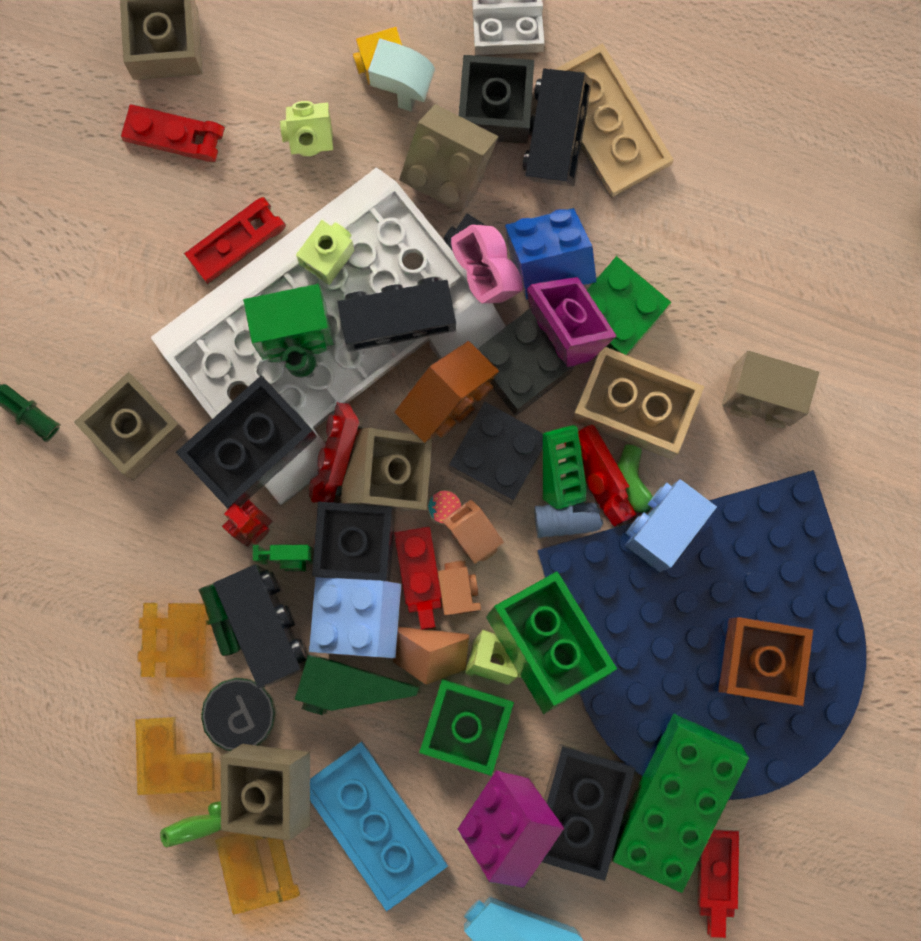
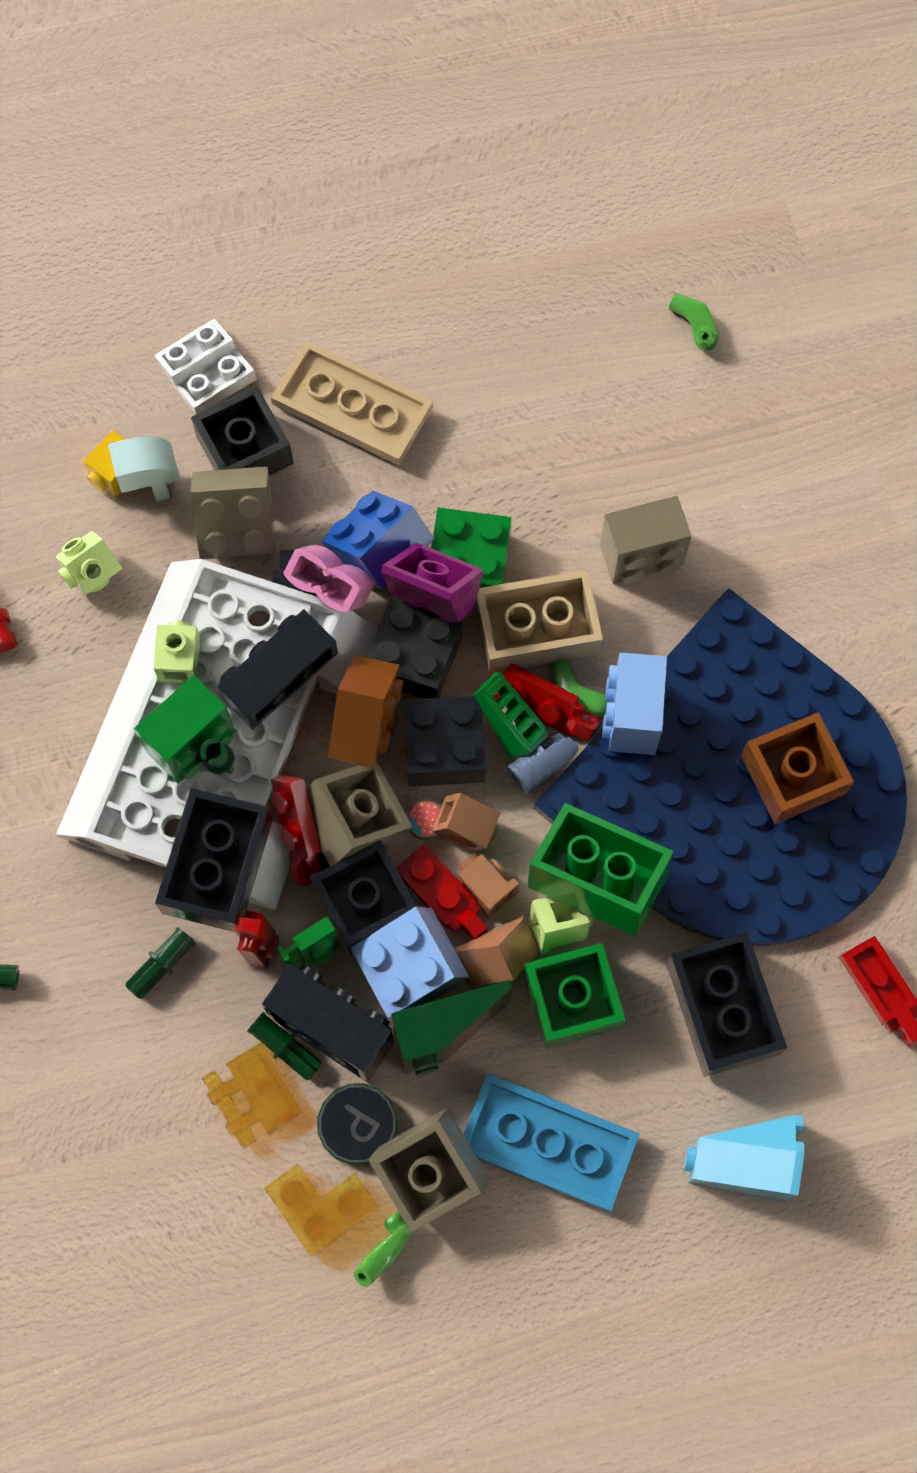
camera: 30 degrees left, 10 degrees down
(130, 426) = (89, 922): dark tan brick -> none
(166, 491) = (159, 963): none -> dark green axle
(234, 240) = (80, 702): red plate -> none
(246, 875) = (456, 1263): clear yellow plate -> none
(510, 829) = (673, 1056): magenta brick -> none
(557, 127) = (313, 431): black brick -> none
(678, 803) = (805, 940): green brick -> none

